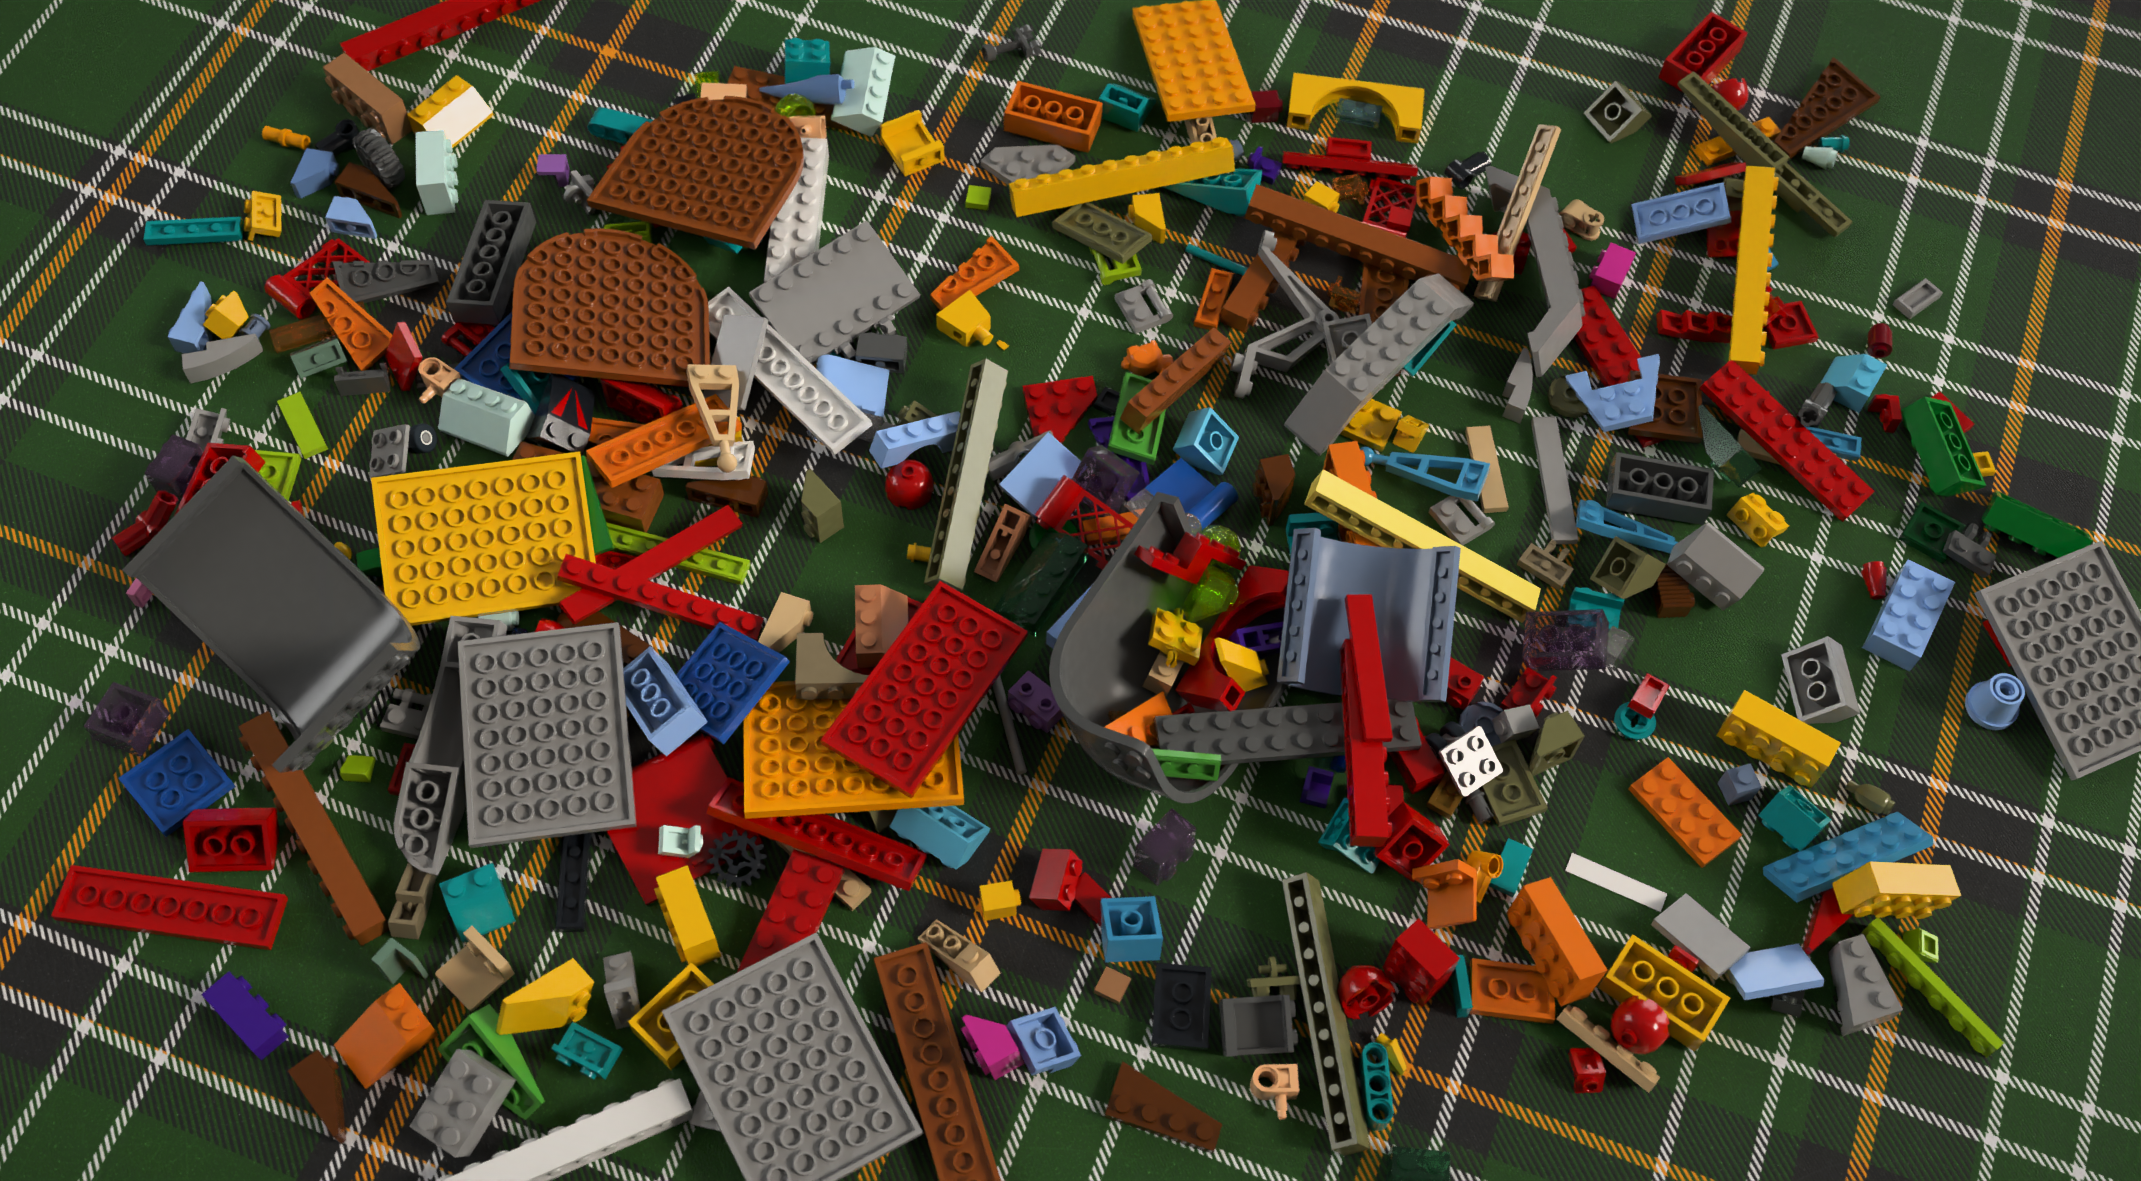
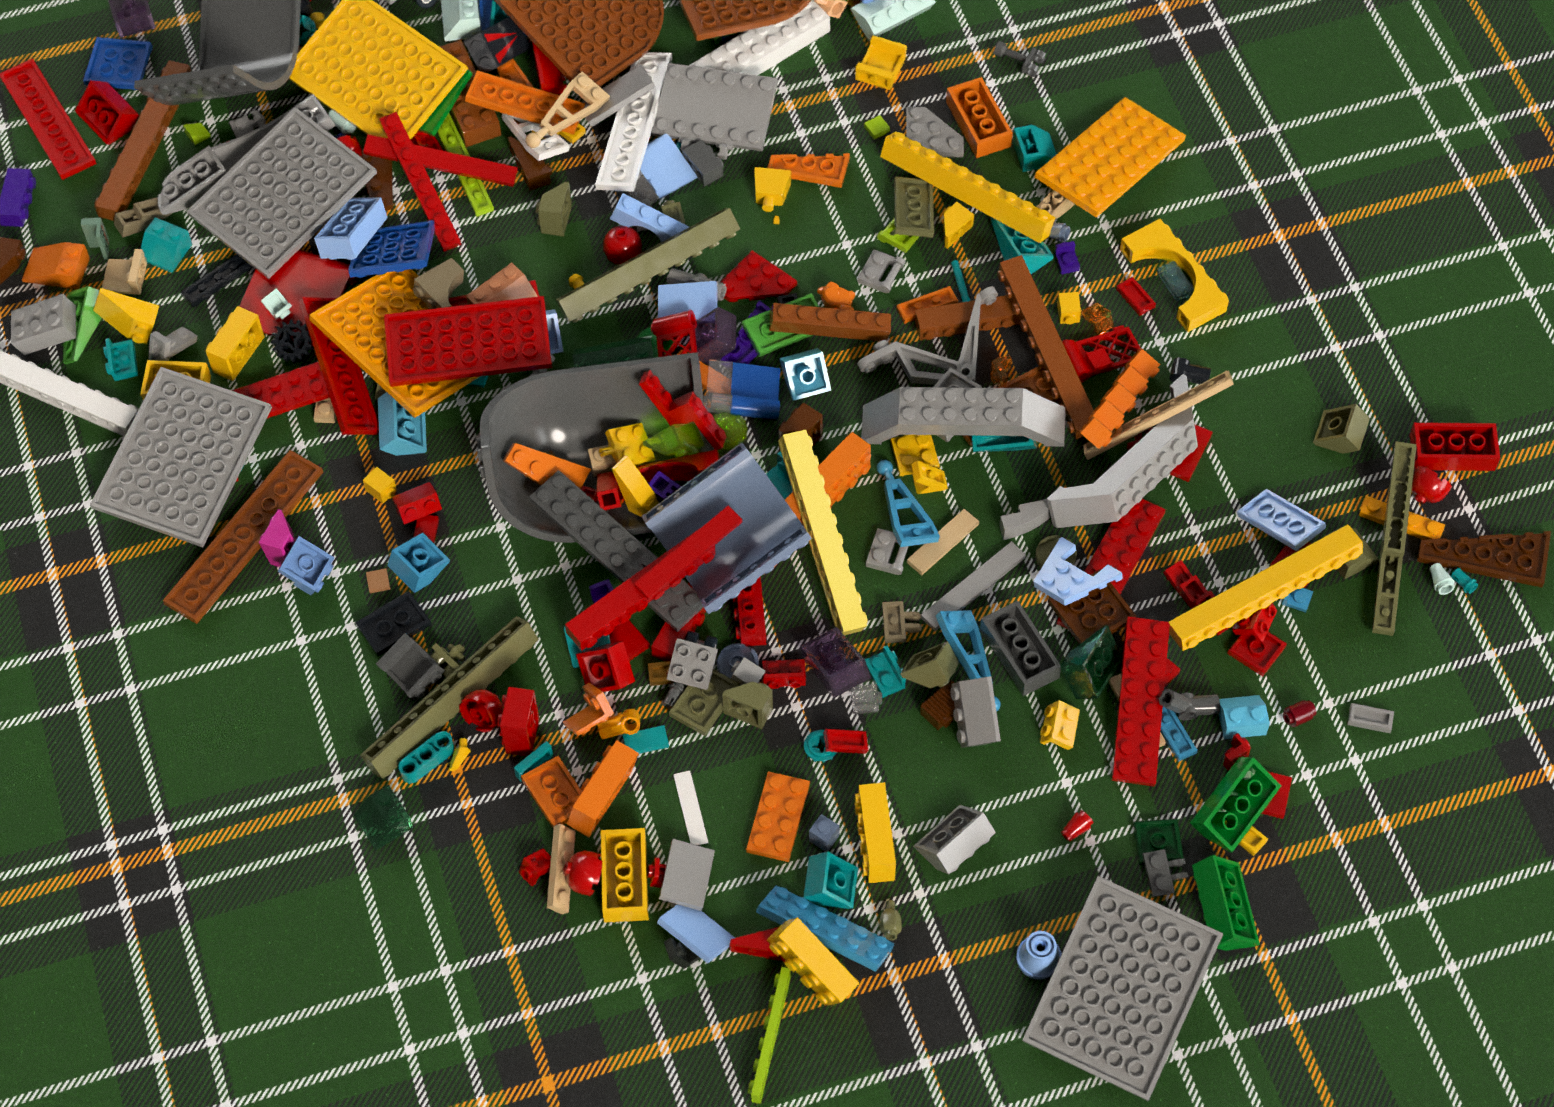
camera: 55 degrees right, 0 degrees up
(786, 620) = (466, 253): tan slope -> none
(960, 955) = (328, 491): tan slope -> none
(1003, 542) = (626, 319): nougat slope -> none
(1156, 1110) = (319, 658): reddish brown wing -> none
(1165, 847) = (485, 541): clear purple brick -> none
(1189, 764) = (536, 504): bright green tile -> none
(1266, 106) = (1118, 224): dark red brick -> none
(1284, 1085) = (387, 708): light nougat piece -> none
(1360, 166) = (1120, 303): red plate -> none
(1580, 217) = (1216, 467): tan piece -> none
(1612, 269) = (1189, 511): dark pink brick -> none
(1710, 173) = (1346, 519): red tile -> none
(1861, 986) = (731, 990): light grey wedge -> none
(1908, 615) = (1063, 861): light blue brick -> none
(1922, 944) = (802, 1016): lime slope -> none

